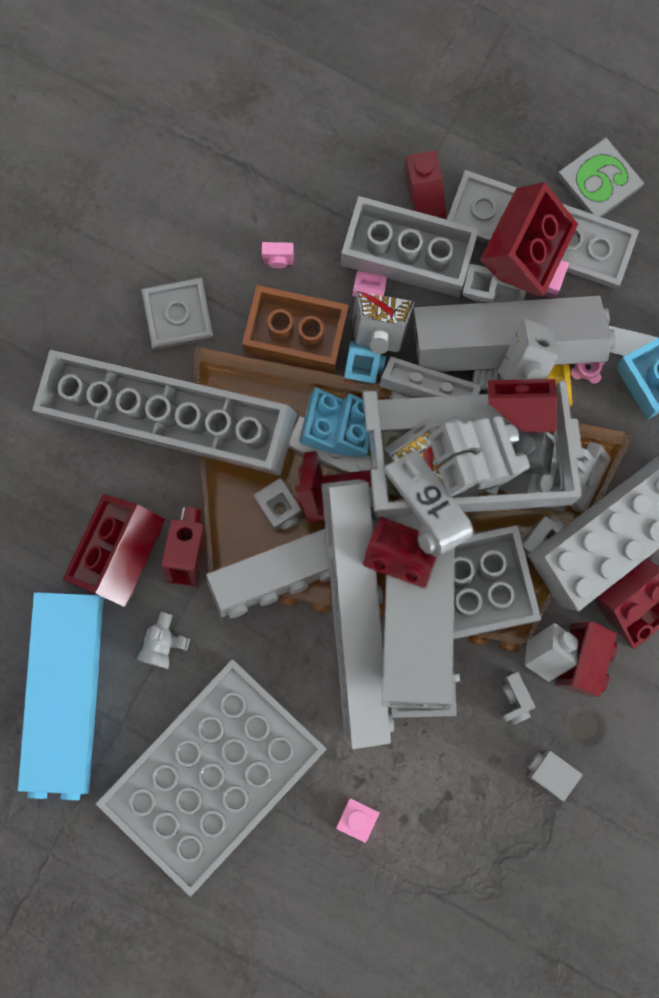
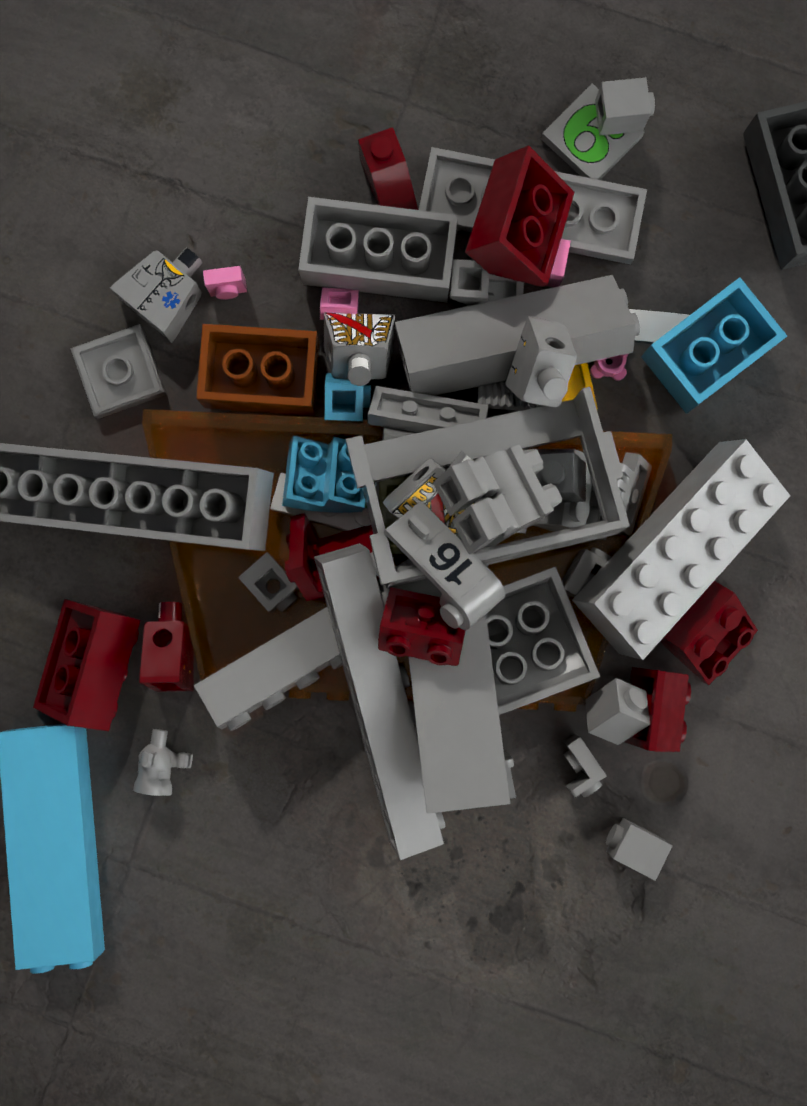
camera: 10 degrees left, 5 degrees up
(211, 777) = (242, 913): light grey plate -> none
(224, 253) = (161, 291): none -> light grey torso
(357, 820) = (419, 934): bright pink plate -> none
(526, 403) = (546, 421): dark red slope -> none
(628, 160) = (623, 106): none -> light grey brick

